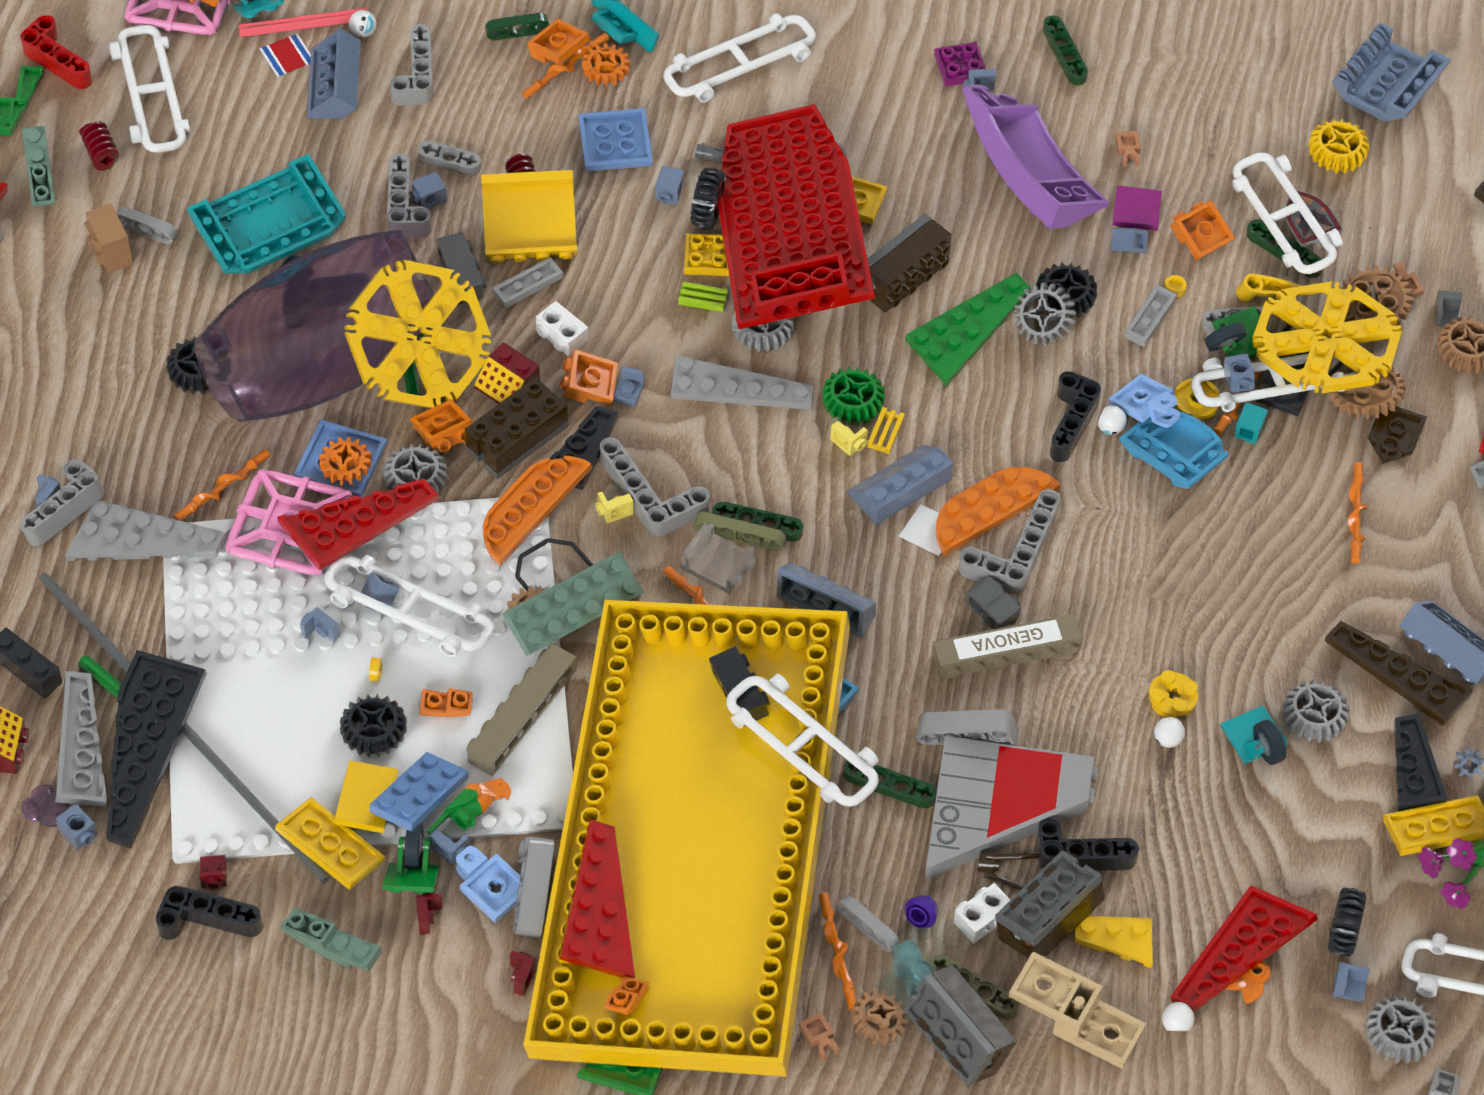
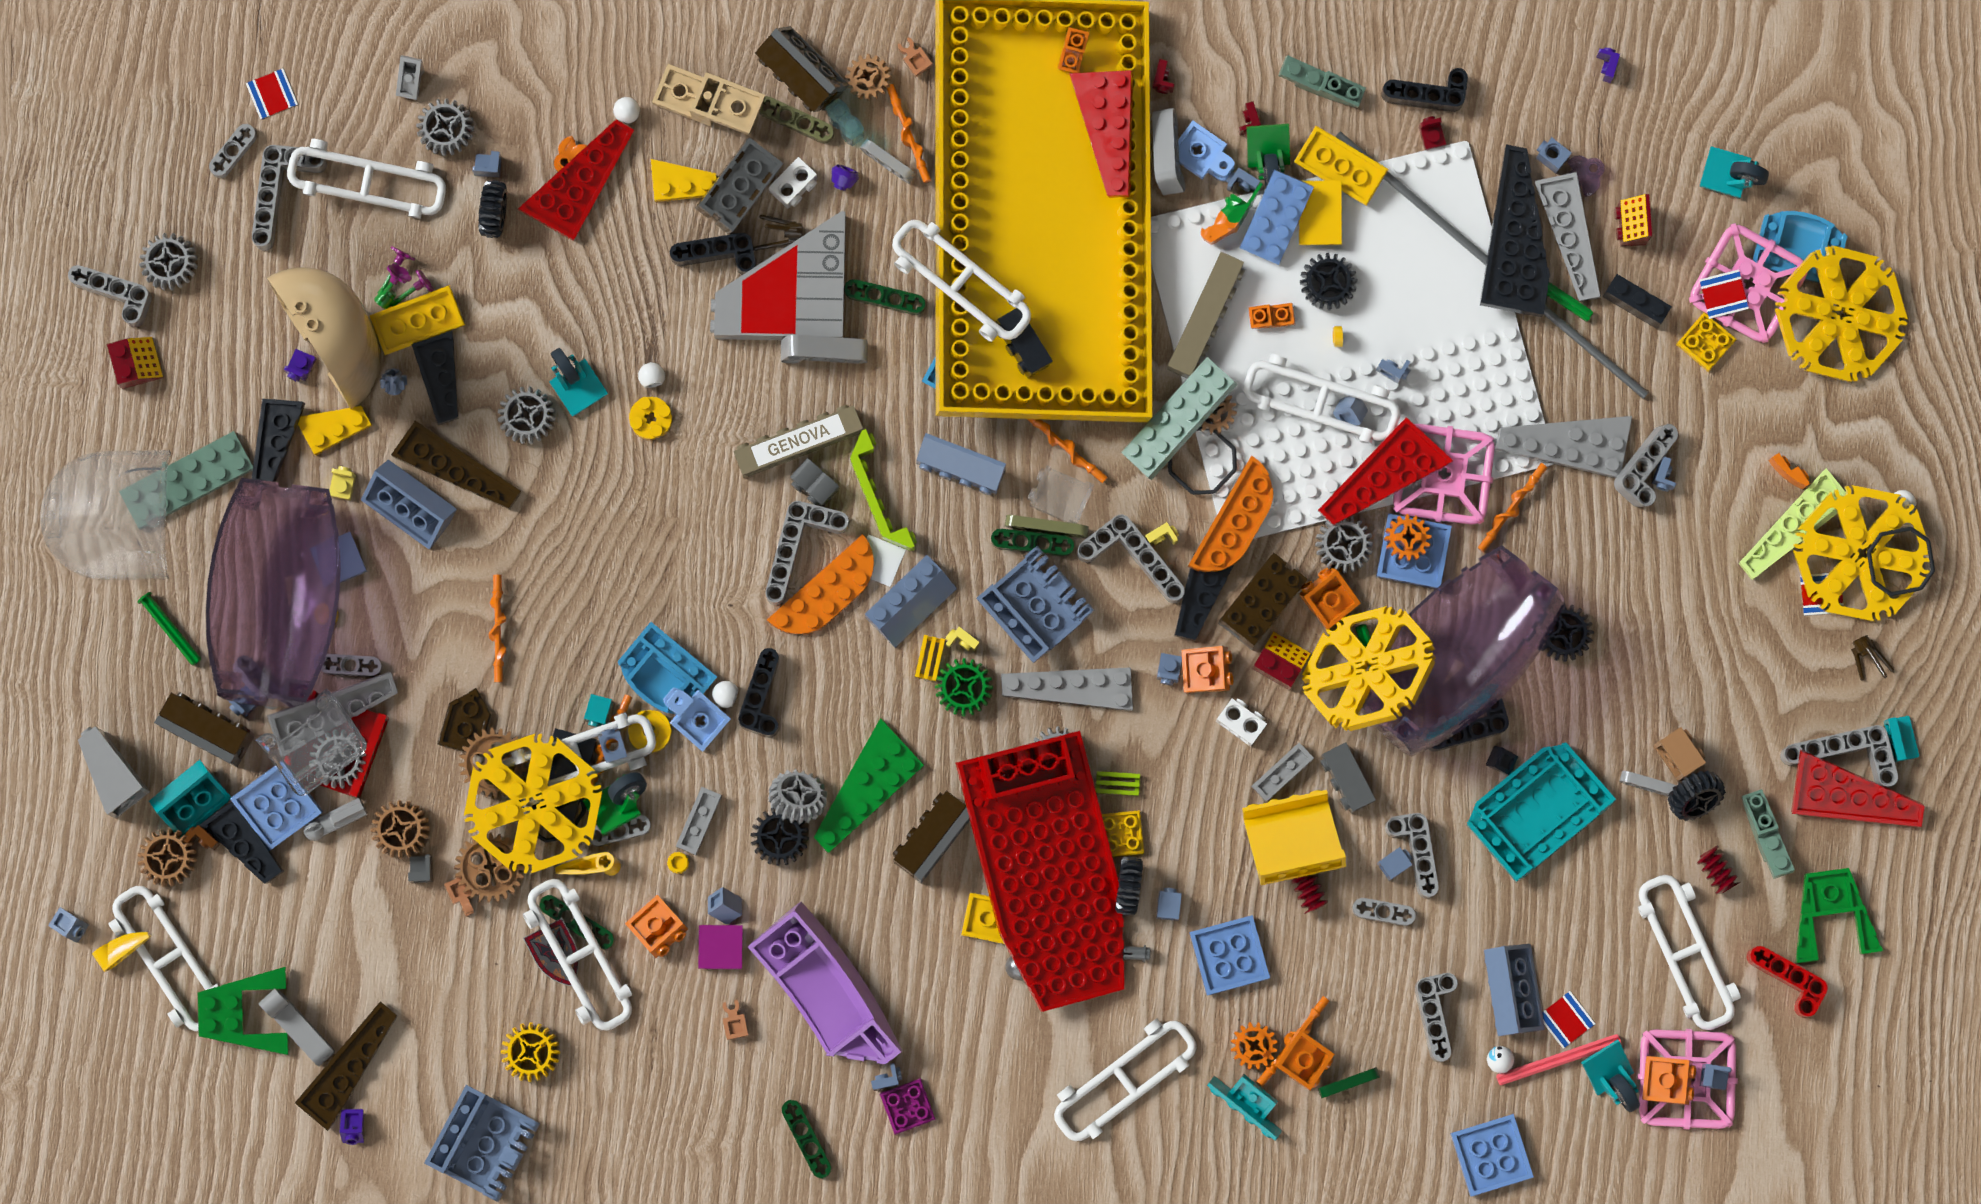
camera: 170 degrees right, 25 degrees up
(99, 195) = (1696, 795): none -> black gear
(768, 453) = (1035, 606): none -> sand blue slope
(906, 540) = (902, 537): none -> lime slope

